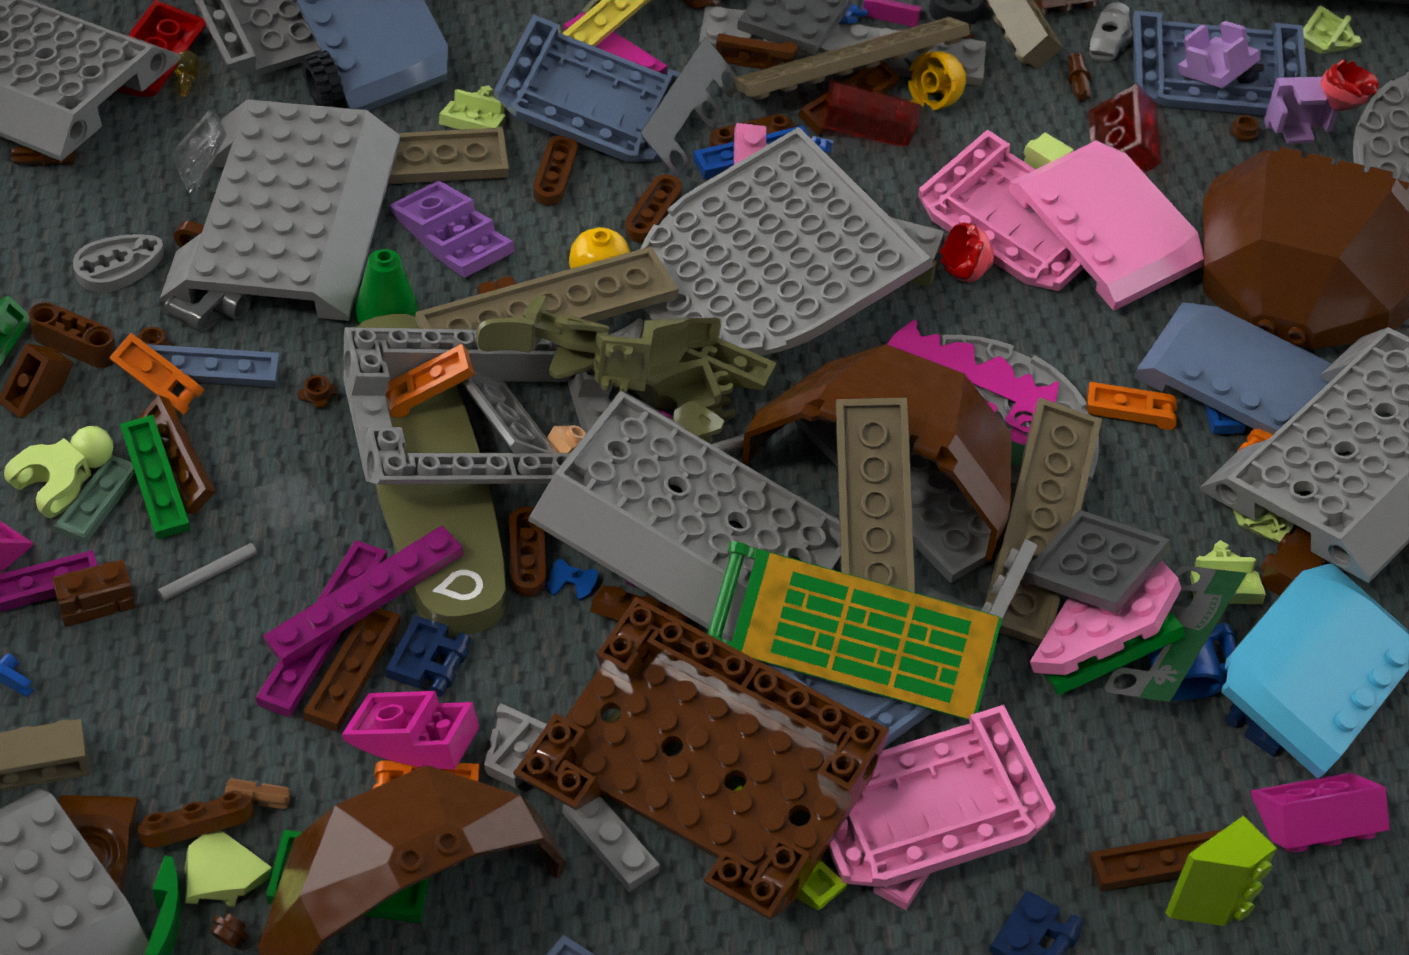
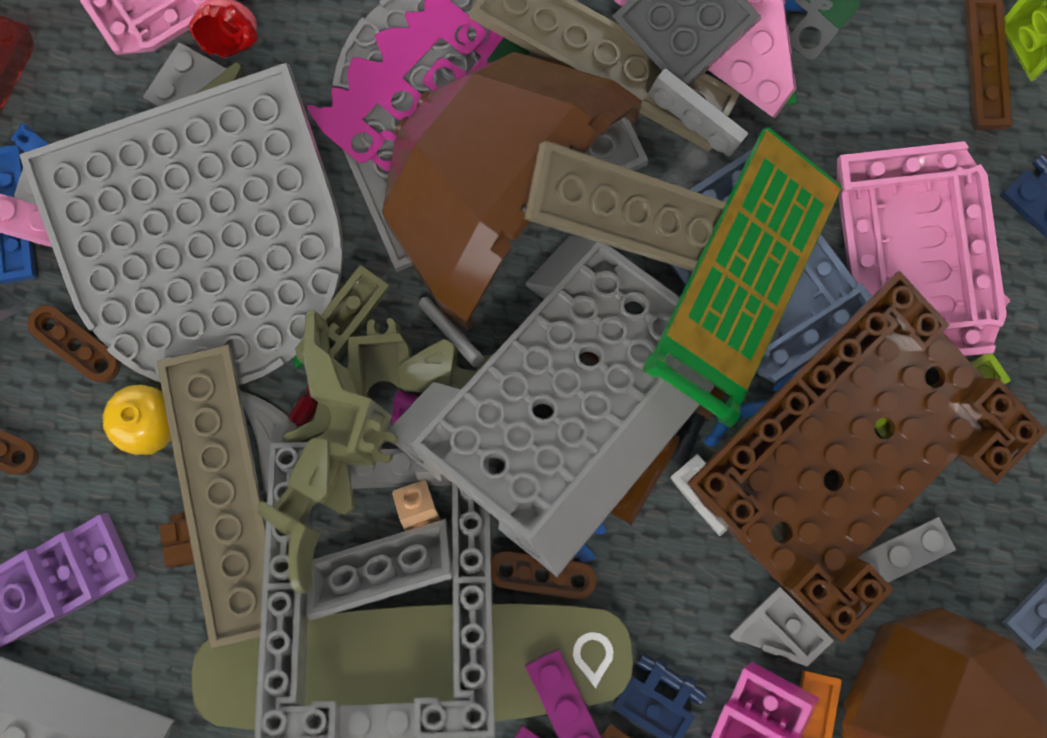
camera: 70 degrees left, 30 degrees up
(385, 288) = (160, 673): green cone -> none
(428, 380) = (324, 649): orange plate -> none

